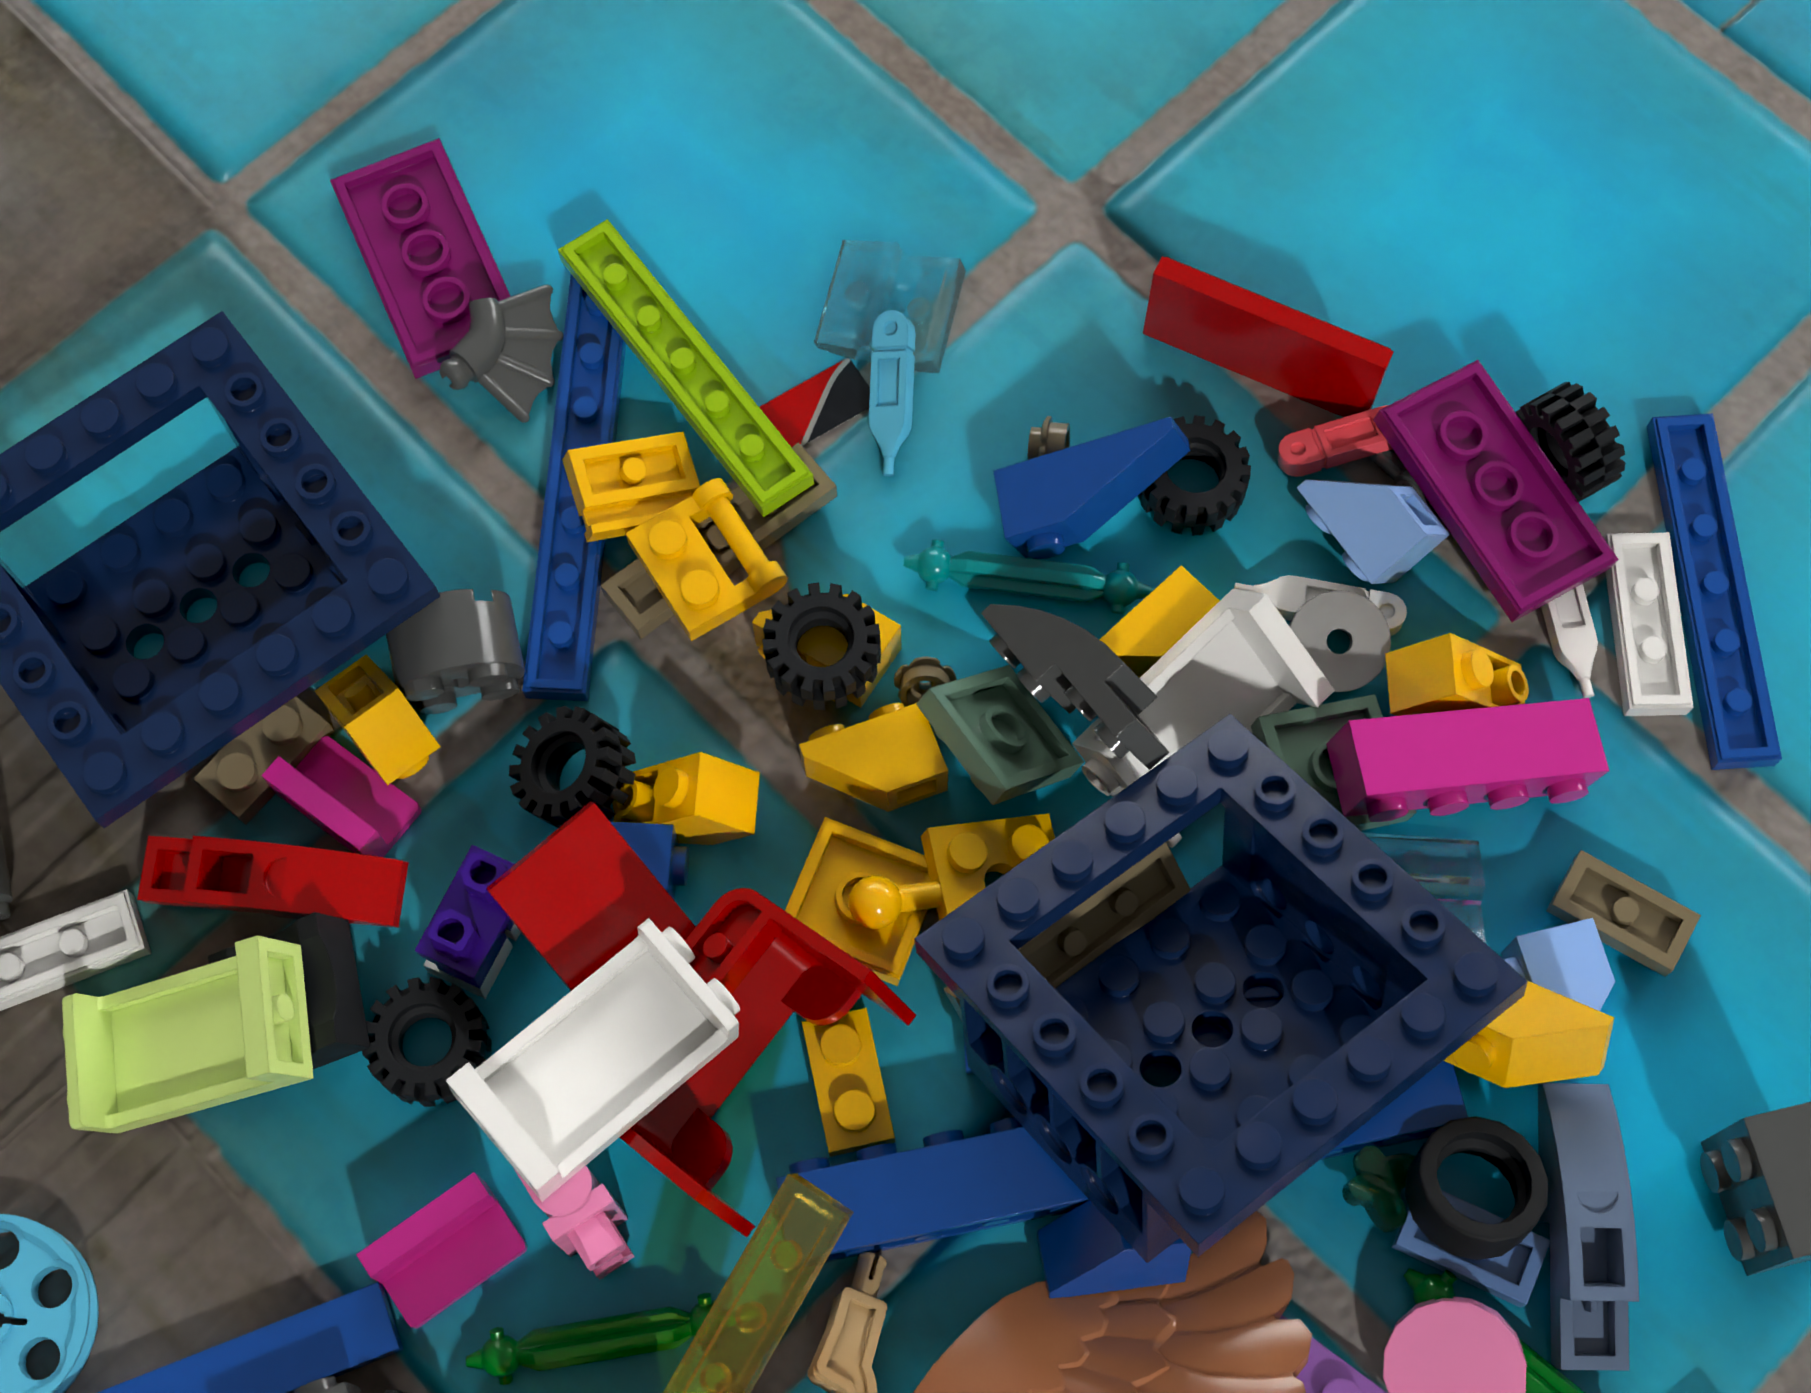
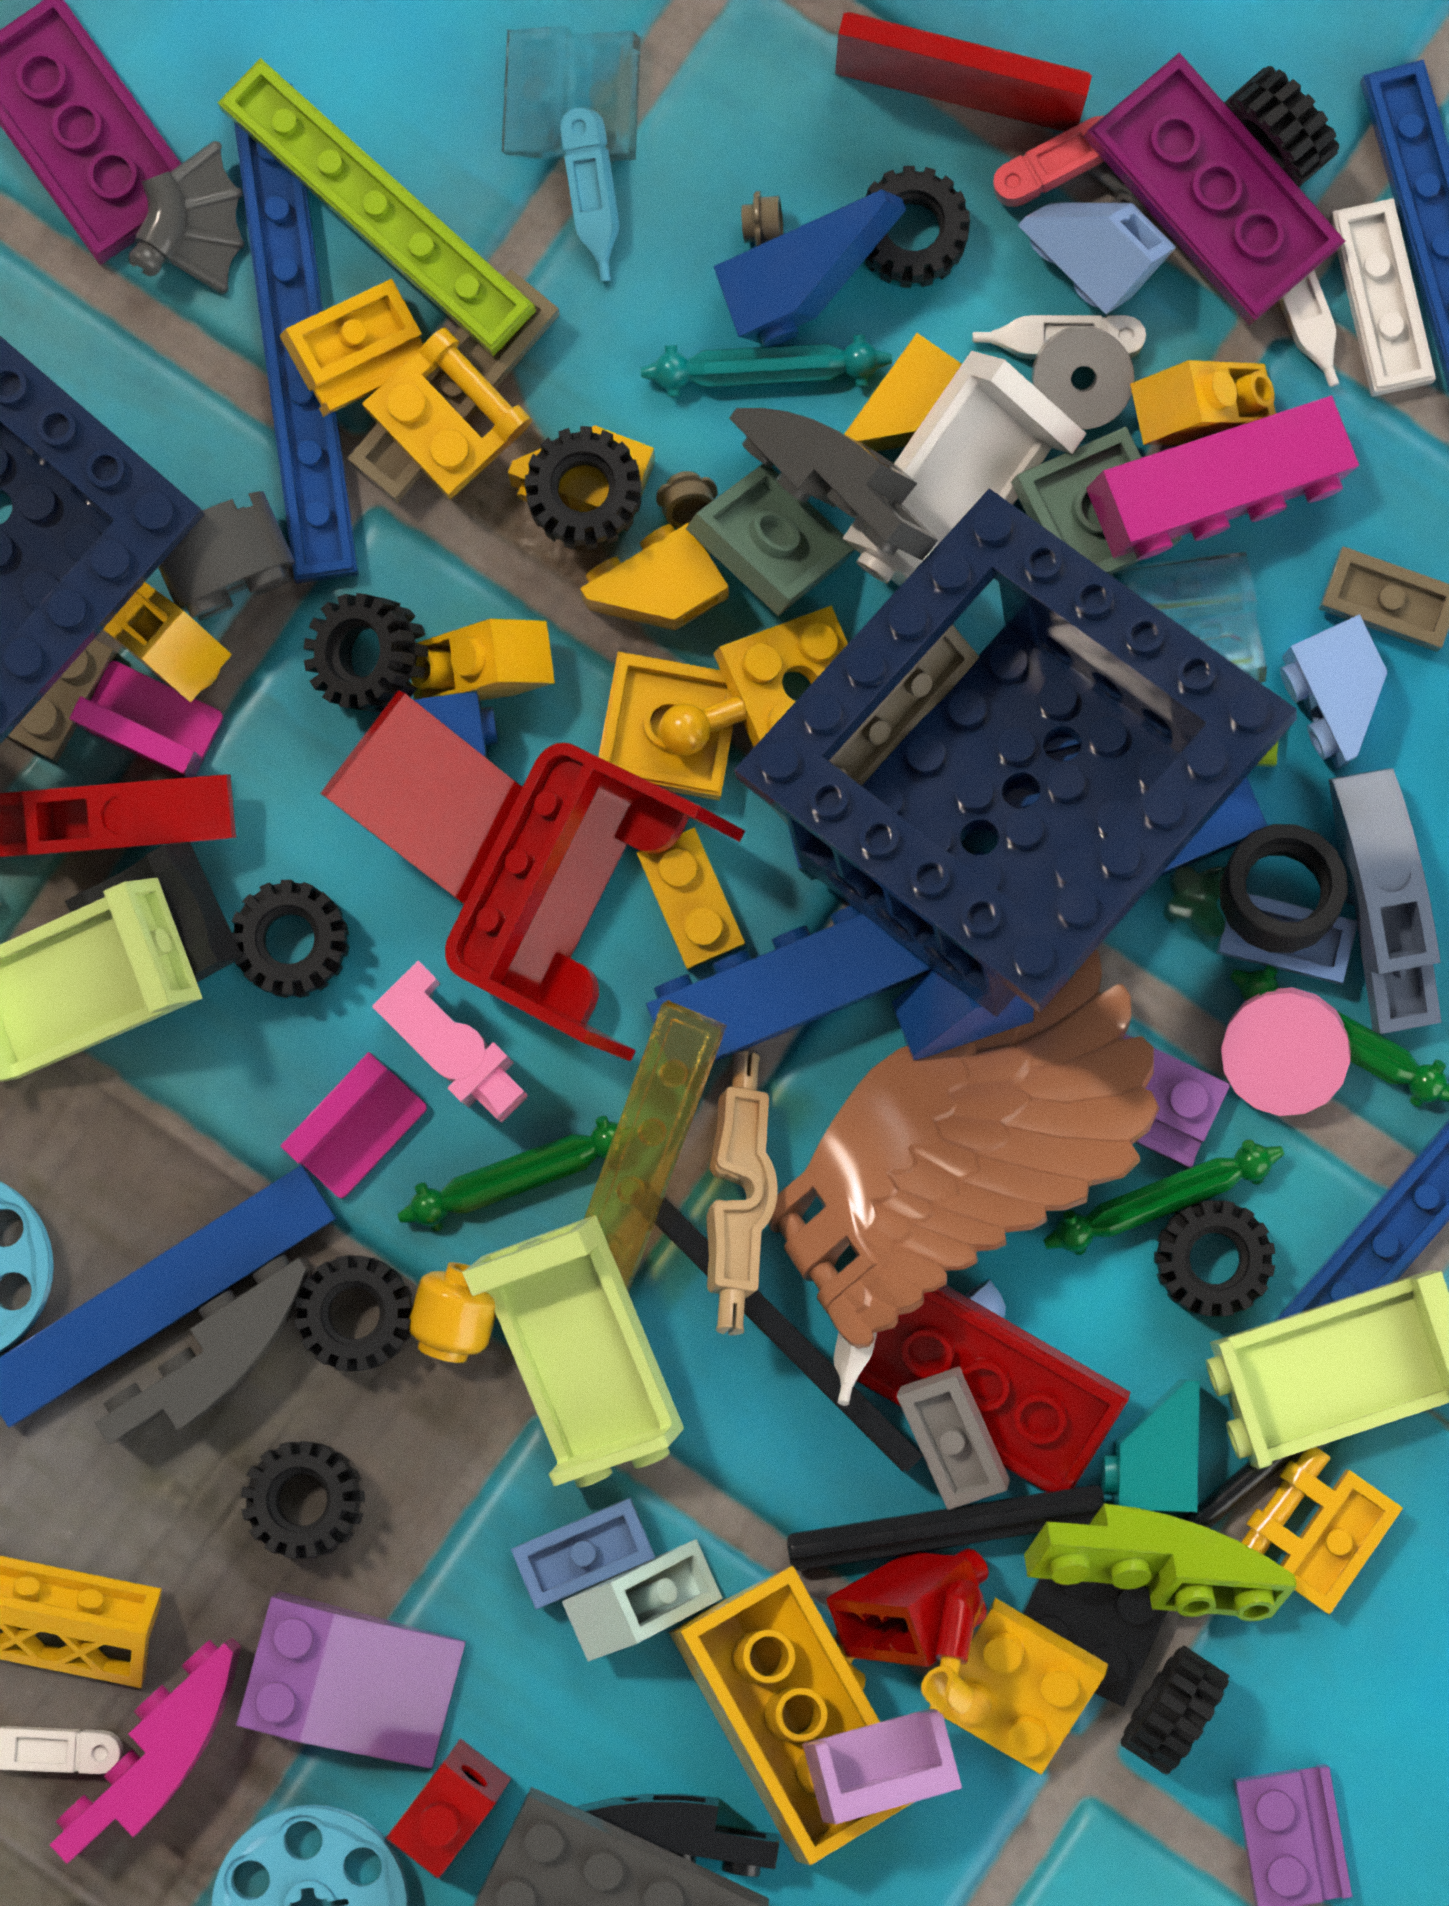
camera: 10 degrees left, 15 degrees up
(469, 929) = (305, 824): dark purple hips -> none
(598, 1059) = (466, 931): white panel -> none
(819, 403) = (518, 217): sticker -> none
(1538, 1042) = (1322, 744): yellow slope -> none

